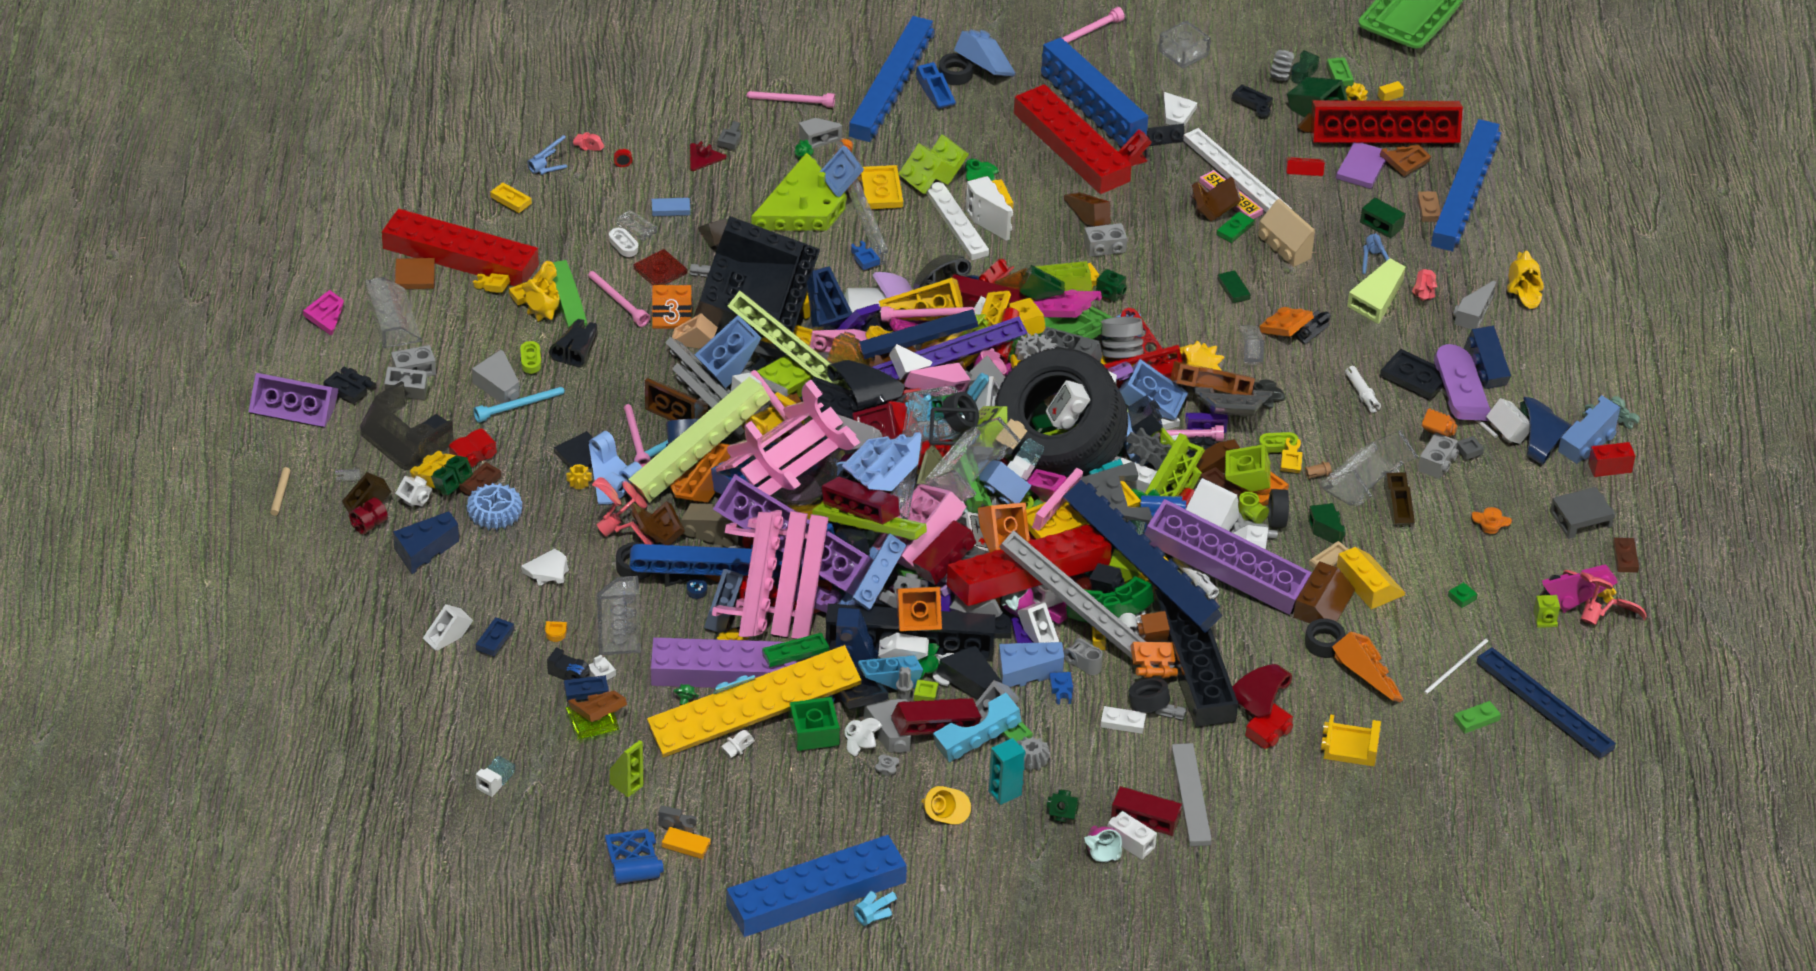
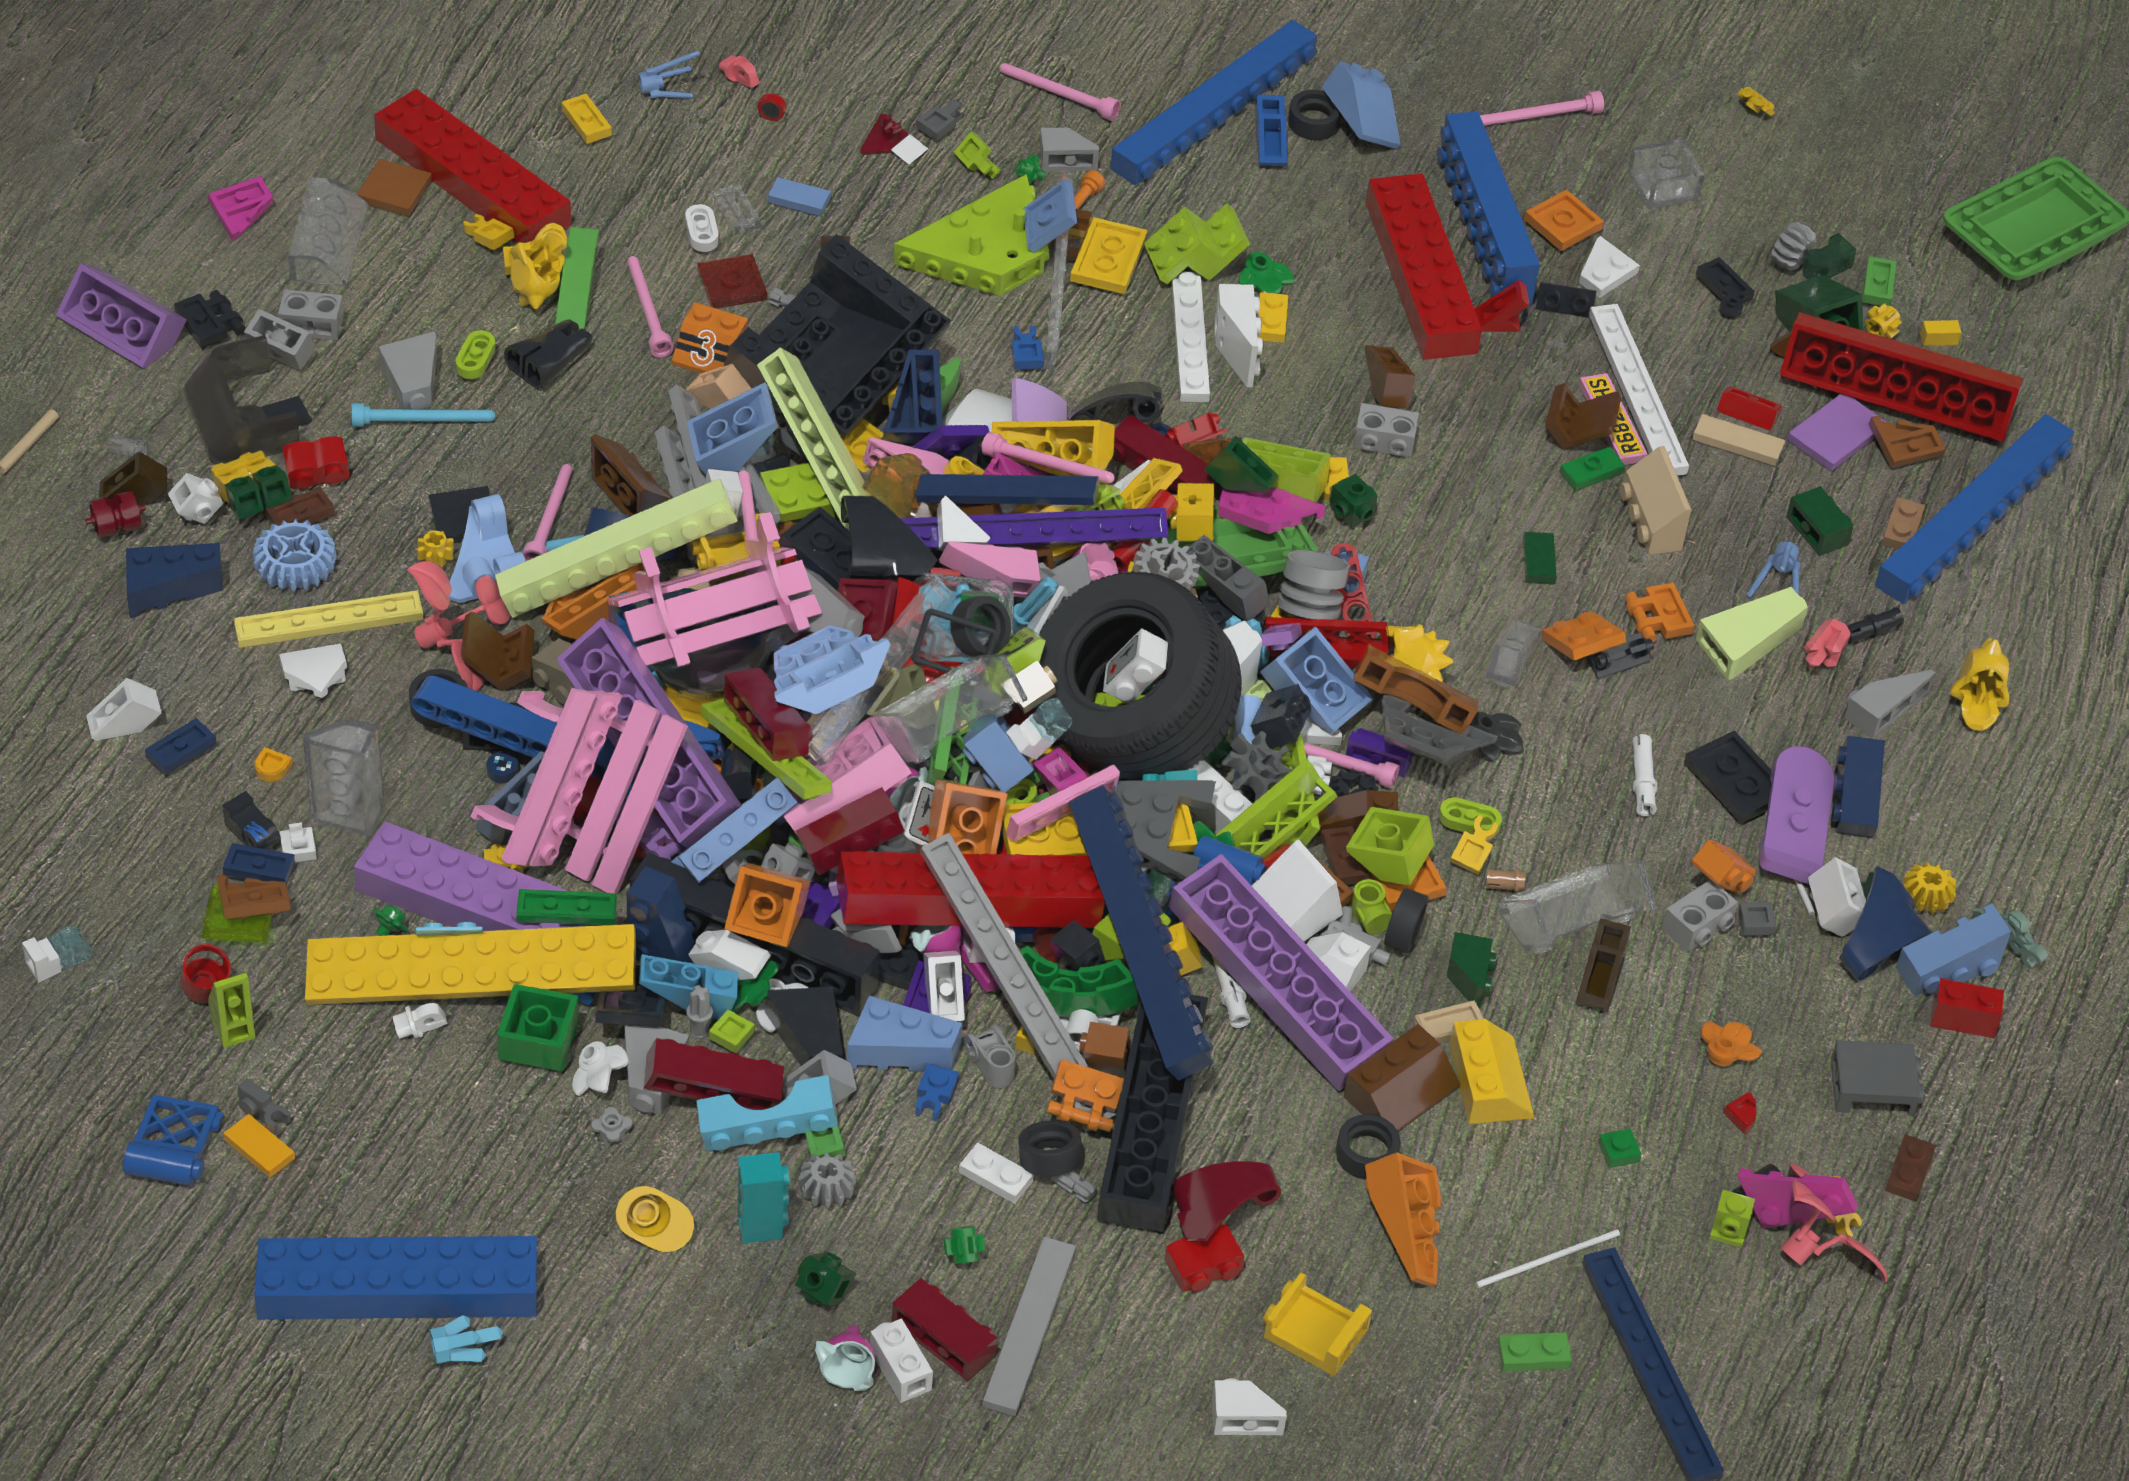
camera: 20 degrees right, 5 degrees up
(536, 537) = (328, 619): none -> light yellow tile
(597, 761) = (201, 973): none -> red helmet
(720, 159) = (909, 149): none -> white sticker
(765, 150) = (974, 155): none -> lime plate
(1131, 762) = (964, 1244): none -> green gear
(1140, 88) = (1563, 220): none -> orange plate
(1309, 186) = (1738, 440): none -> tan tile
(1324, 293) = (1668, 612): none -> orange plate
(1338, 797) = (1245, 1410): none -> white slope
(1444, 266) = (1873, 624): none -> black pin
(1518, 554) = (1742, 1112): none -> red tile
(1557, 400) = (1930, 887): none -> yellow gear

